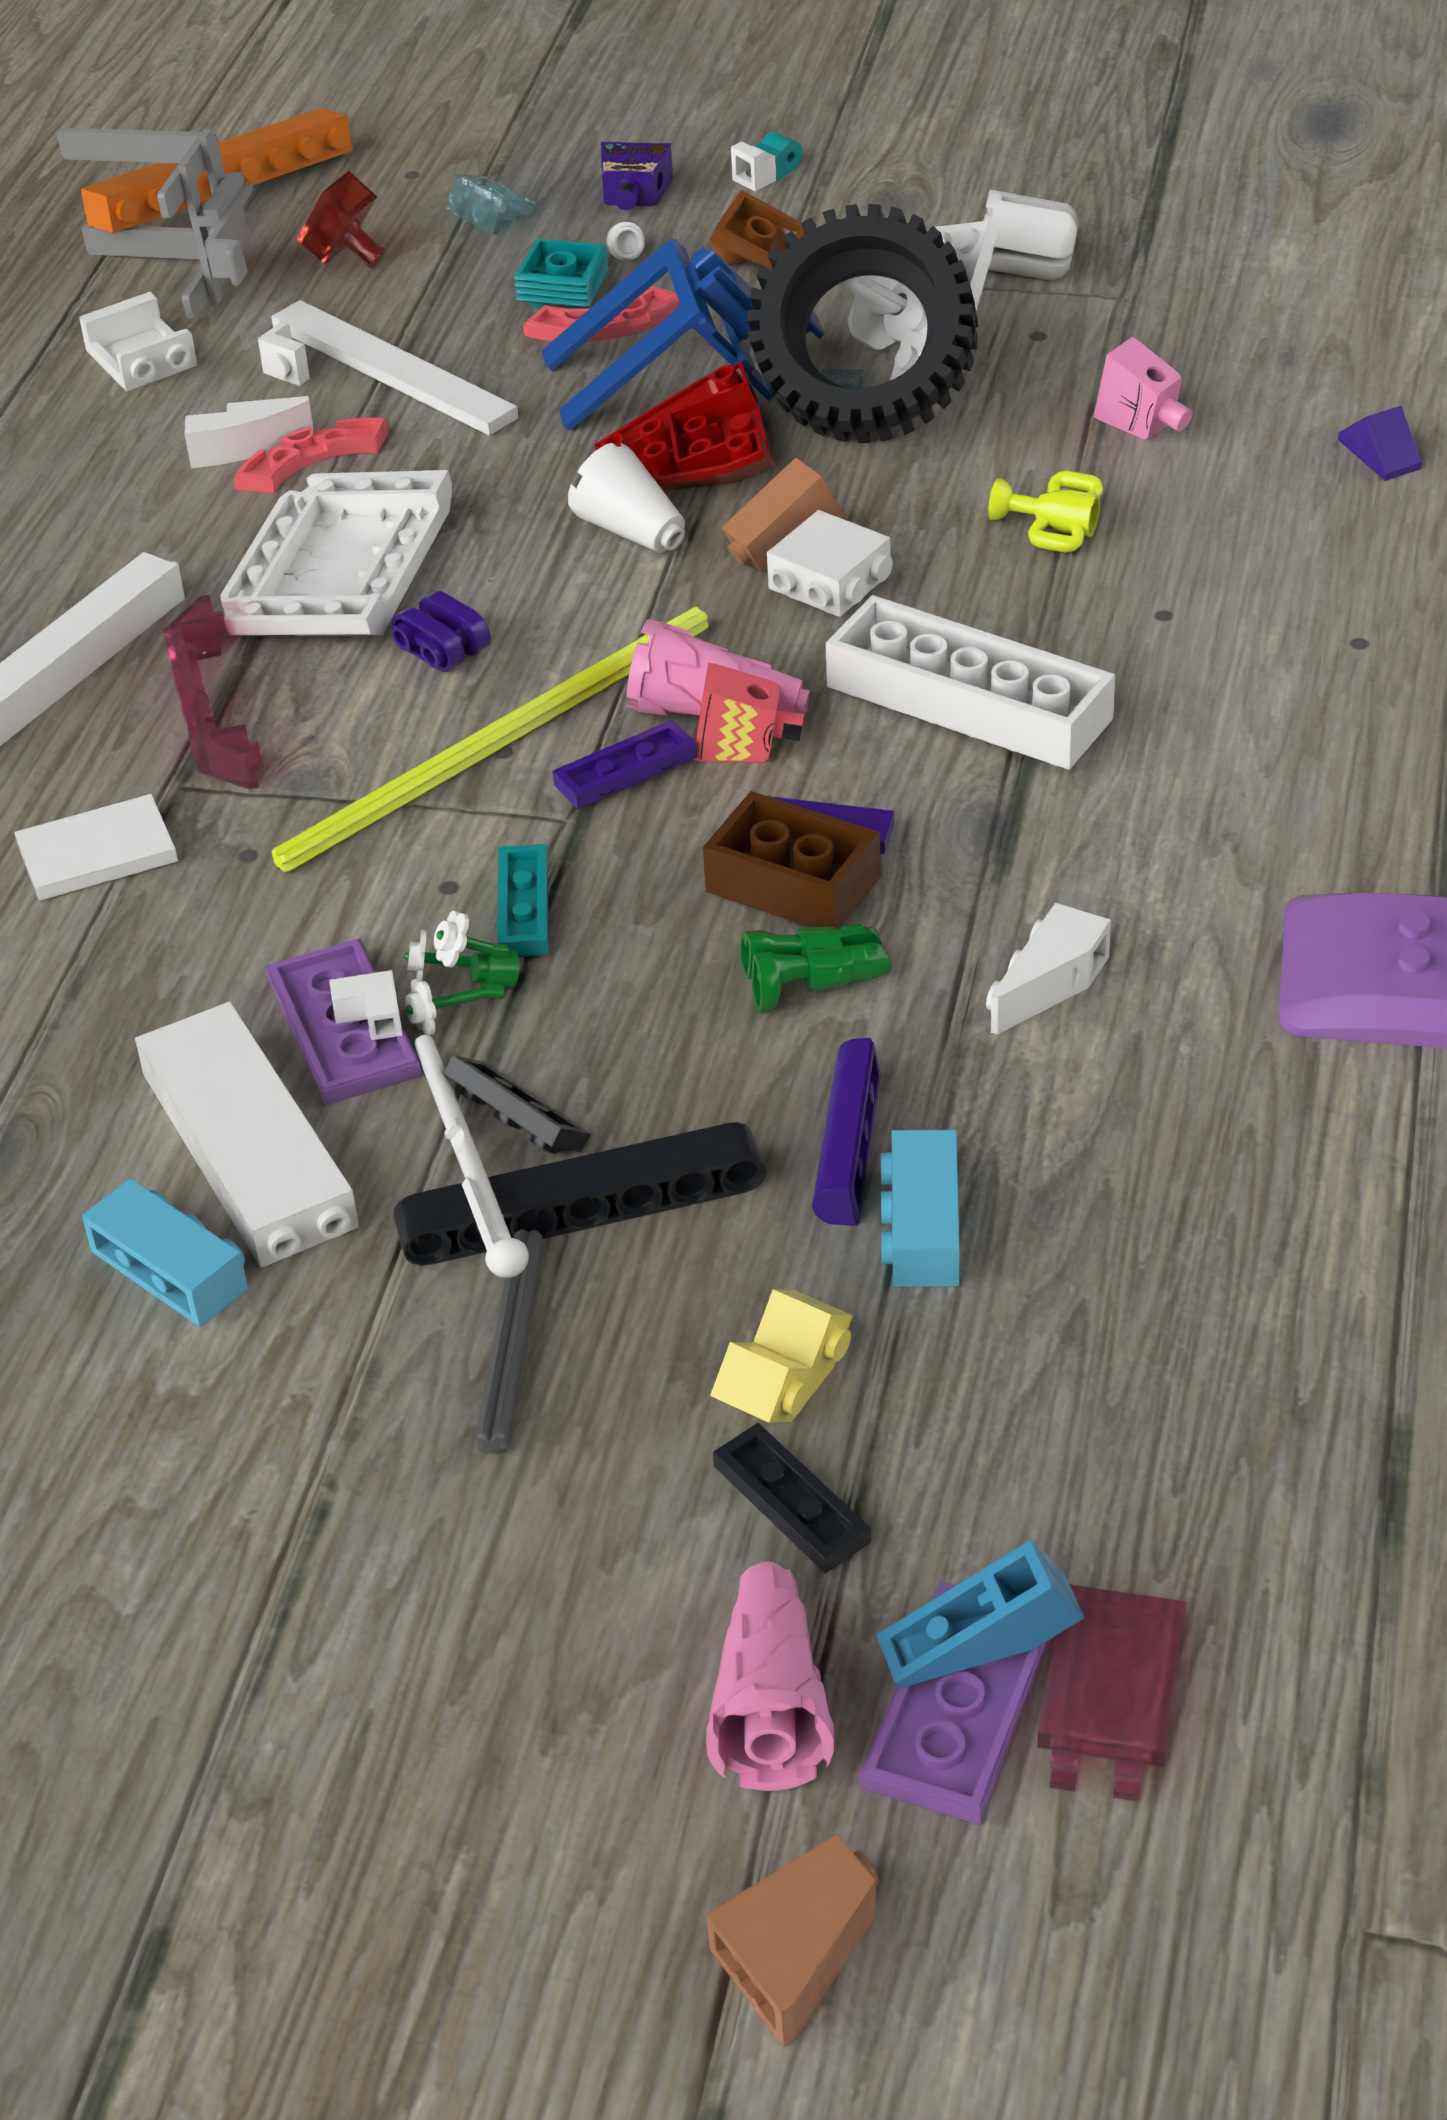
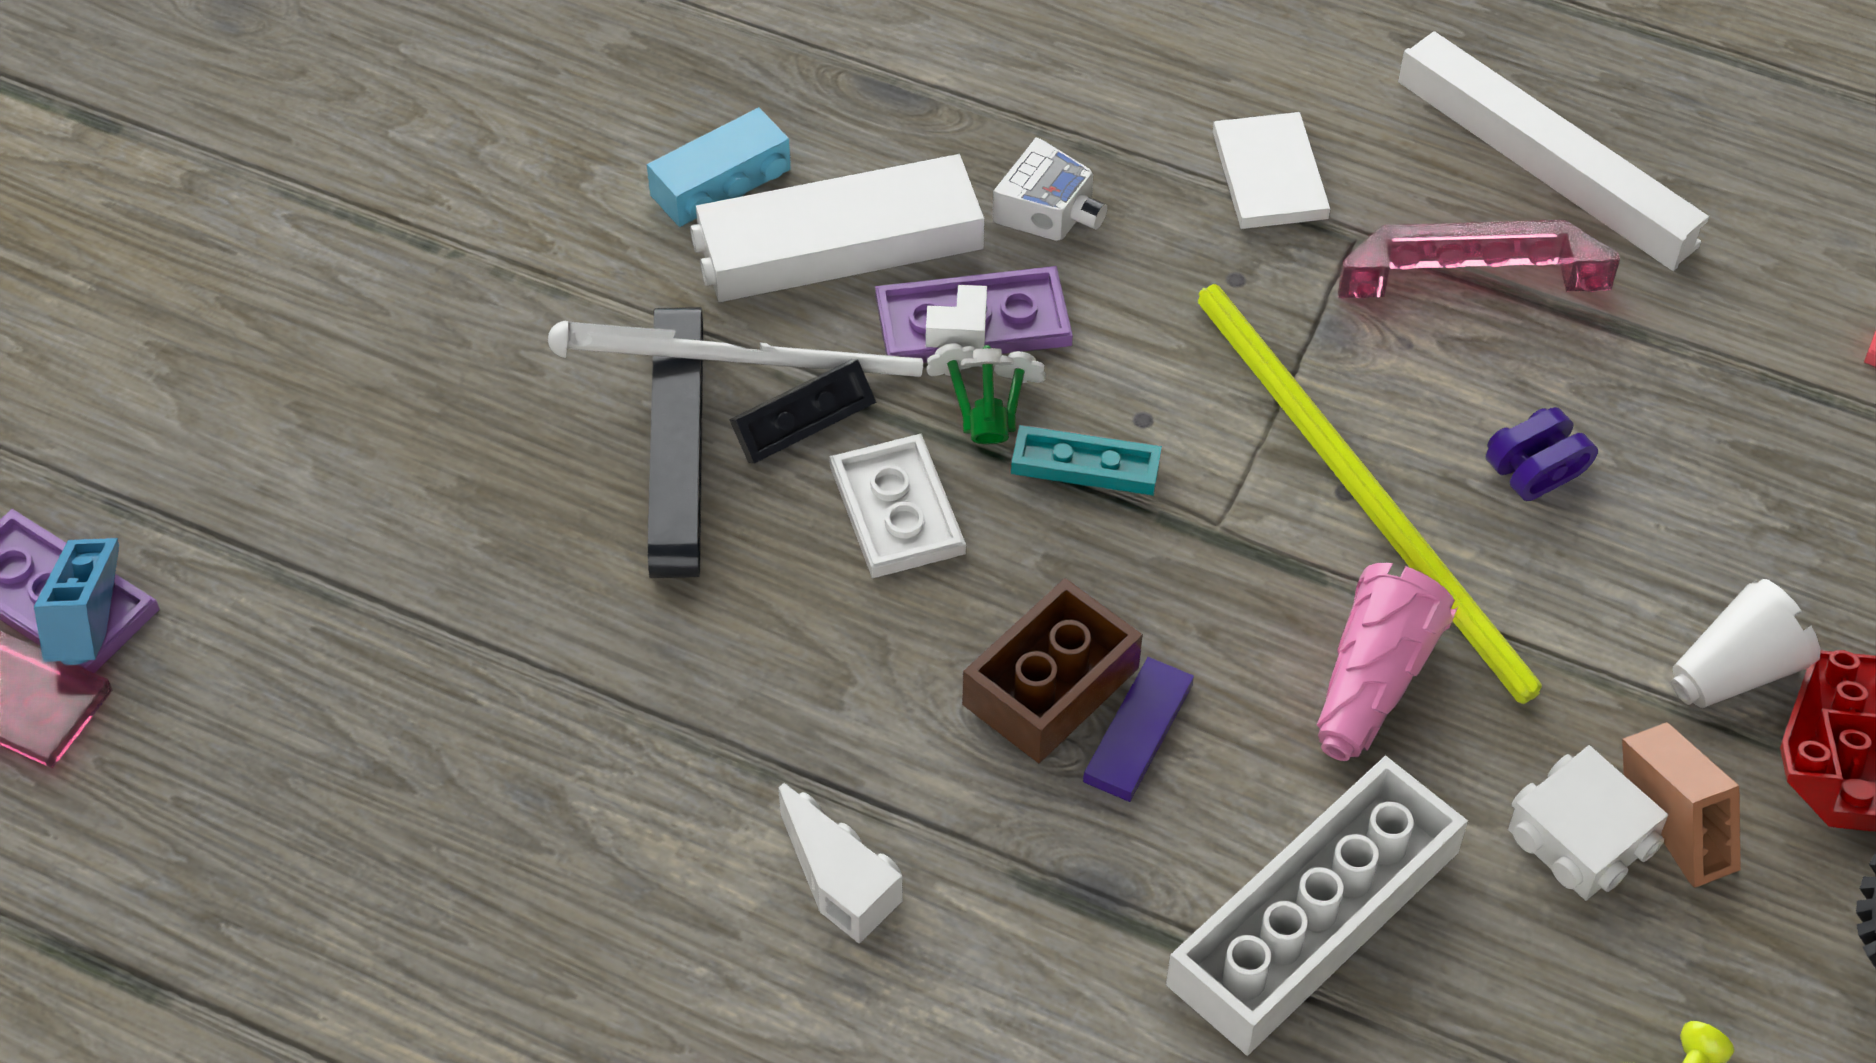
camera: 100 degrees right, 10 degrees up
(160, 982) = (1047, 194): none -> white torso
(337, 554) = (1701, 387): white slope -> none
(509, 1350) = (541, 374): dark grey axle -> none
(610, 1025) = (897, 505): none -> white tile
(625, 764) = (1276, 576): dark purple plate -> none
(741, 717) = (1304, 672): coral torso -> none
(769, 1696) = (88, 454): bright pink cone -> none
(788, 1358) = (415, 536): light yellow brick -> none
(792, 1497) = (283, 519): black plate -> none
(818, 955) = (912, 679): green piece -> none
(847, 1133) = (674, 648): dark purple brick -> none
(921, 1208) = (552, 679): medium azure brick -> none

